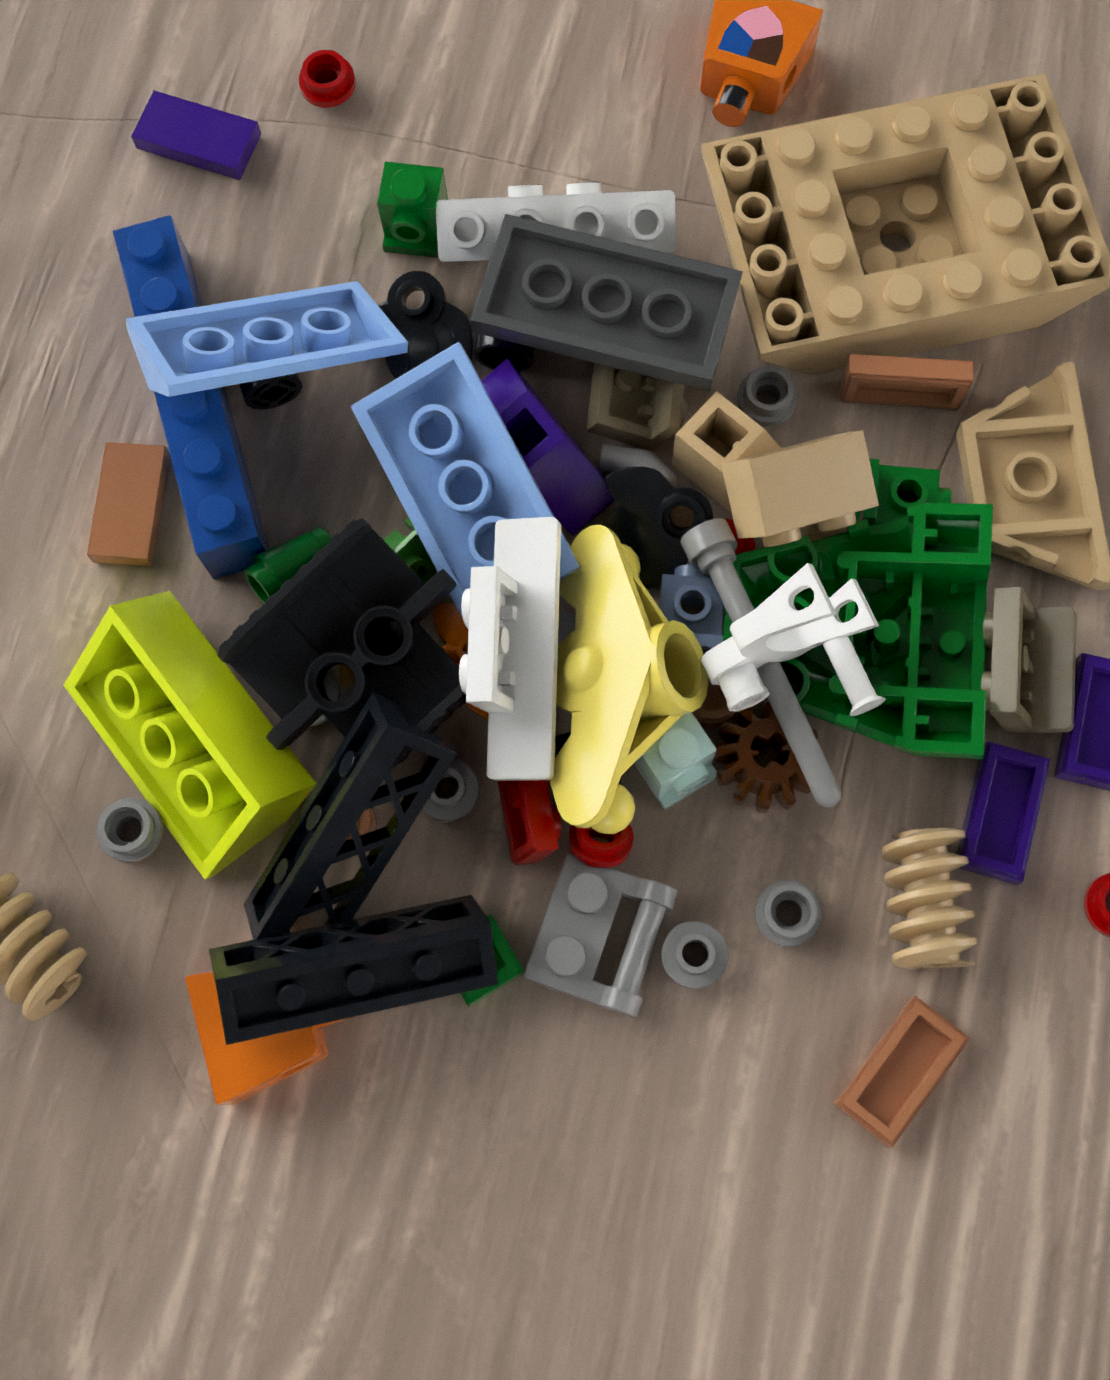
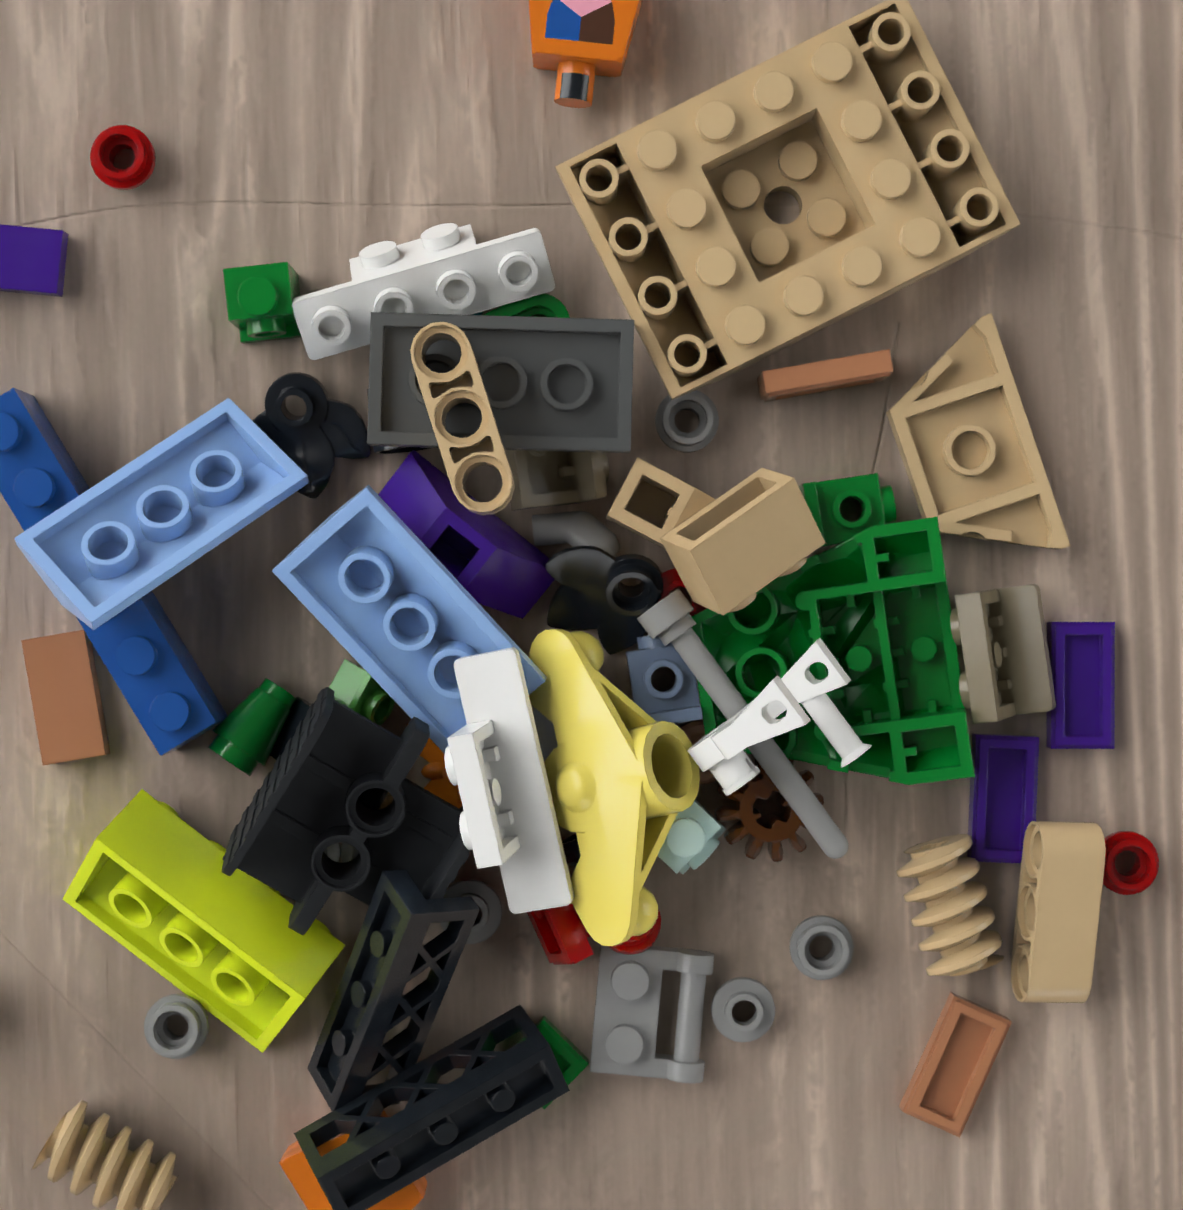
camera: 20 degrees left, 15 degrees up
(569, 280) = (448, 389): none -> tan beam
(1040, 930) = (1057, 912): none -> tan beam

